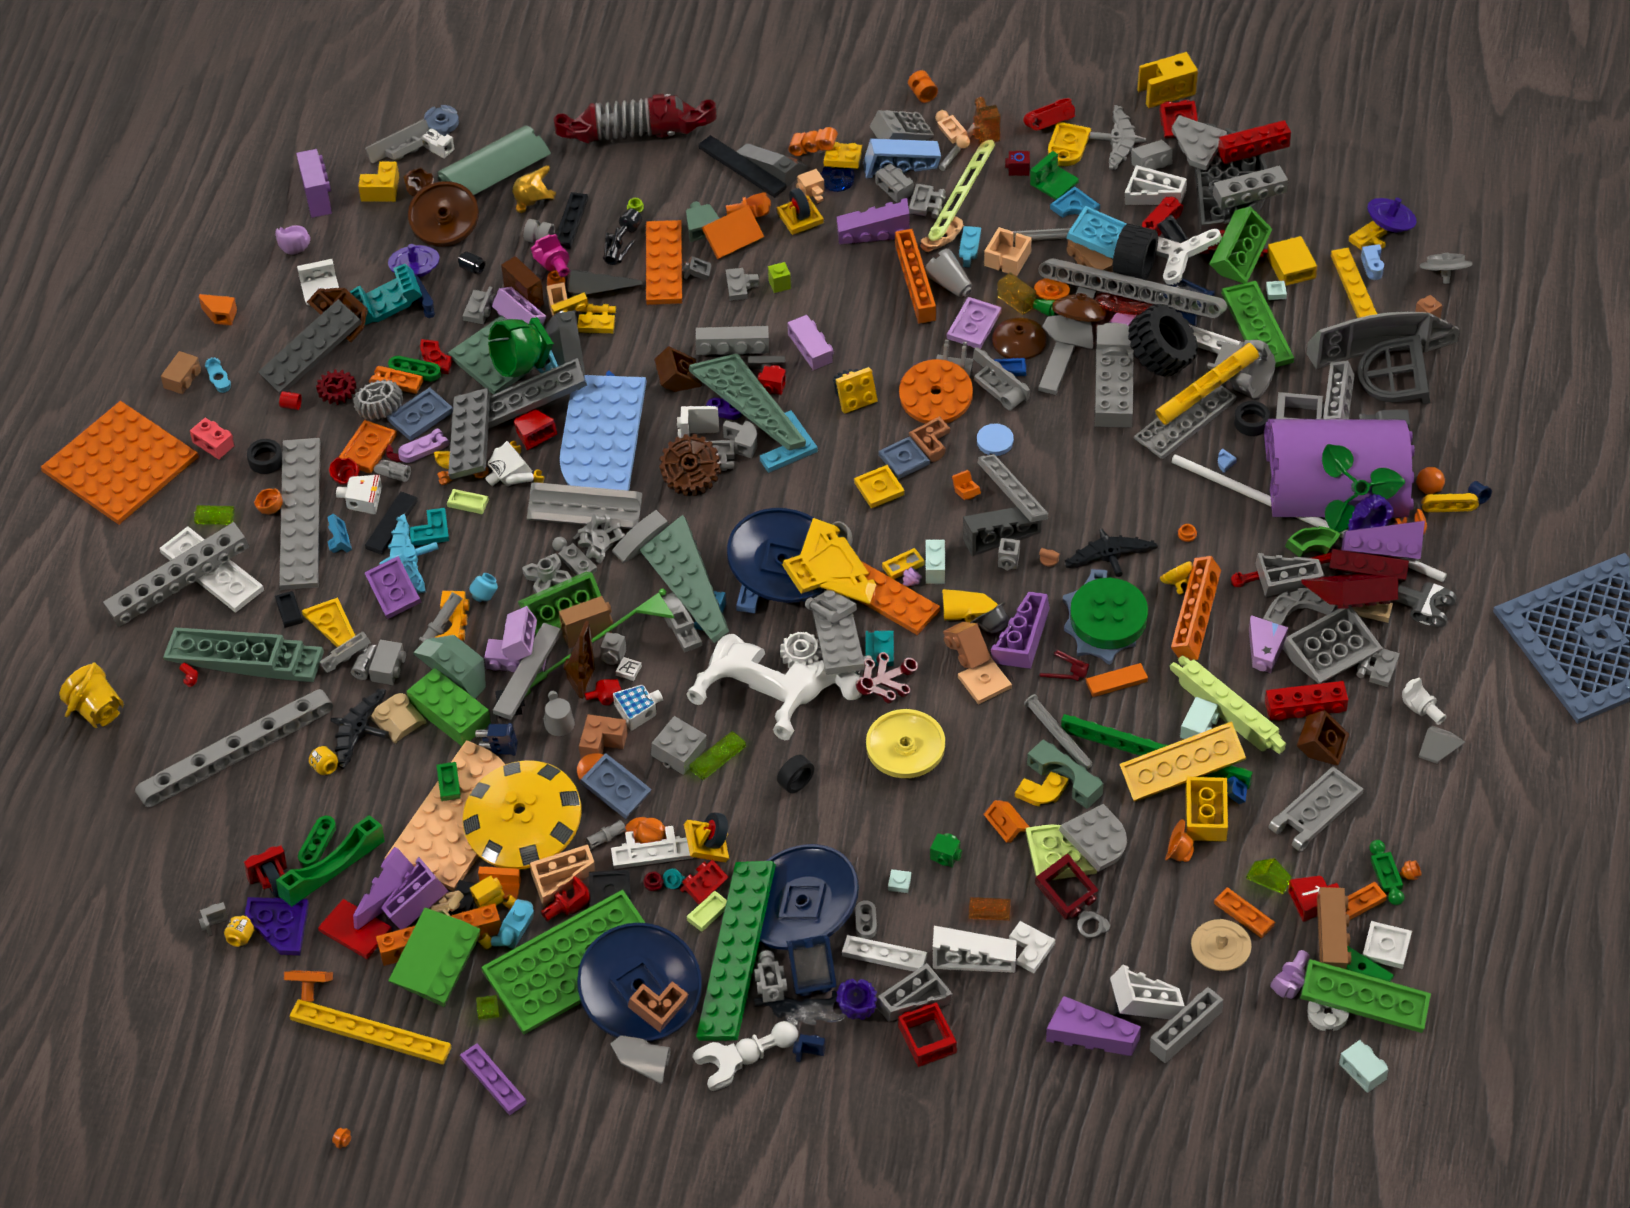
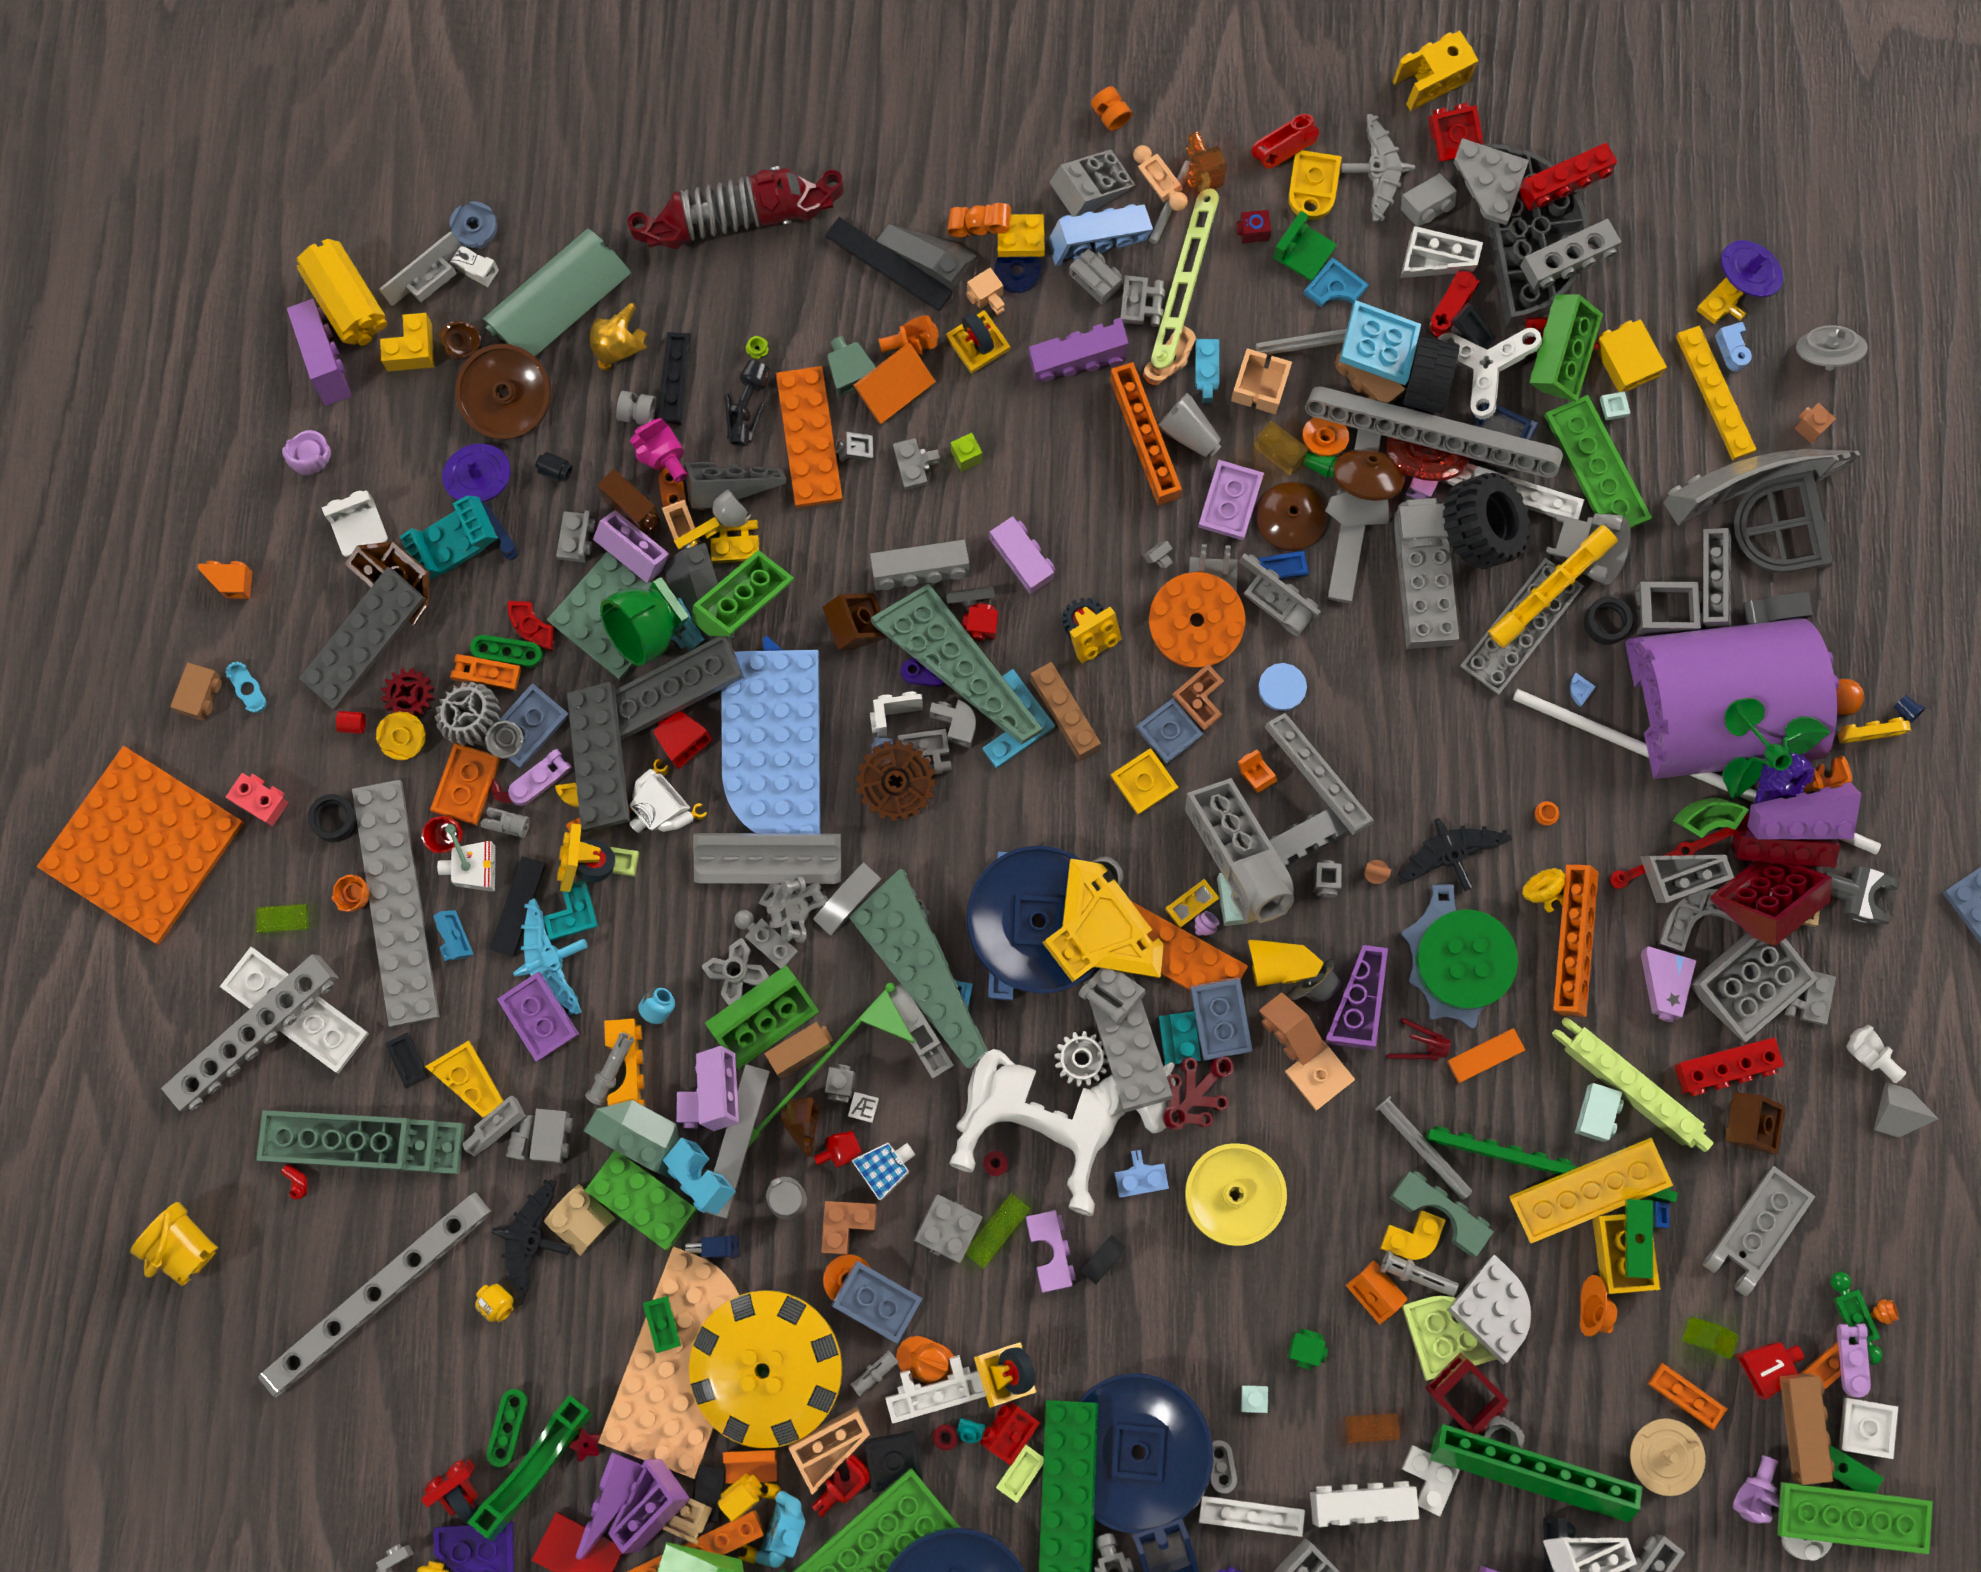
camera: 10 degrees left, 25 degrees up
(325, 410) = (400, 735): none -> yellow tile
(337, 146) = (341, 292): none -> yellow brick
(351, 465) = (451, 829): none -> sand green hinge
(369, 857) = (584, 1437): none -> dark red plate
(402, 413) = (504, 739): none -> light grey hair
(445, 490) = (586, 859): none -> plate
(493, 685) = (685, 1165): none -> medium azure arch
(592, 339) = (740, 595): none -> bright green slope
(596, 291) = (729, 510): none -> light grey hair
(723, 716) = (995, 1171): none -> dark red plate
(756, 782) = (1047, 1228): none -> lavender arch
(826, 437) = (1065, 711): none -> medium nougat brick
(834, 732) = (1141, 1177): none -> light blue plate
(912, 632) = (1221, 1018): none -> sand blue plate
(914, 350) = (1158, 554): none -> light grey tile
(943, 523) = (1241, 851): none -> light grey brick
(1033, 807) = (1405, 1273): none -> light grey pin
(1113, 942) = (1536, 1473): none -> green brick
(1214, 789) = (1639, 1255): none -> green tile
(1379, 894) = (1854, 1360): none -> lavender plate

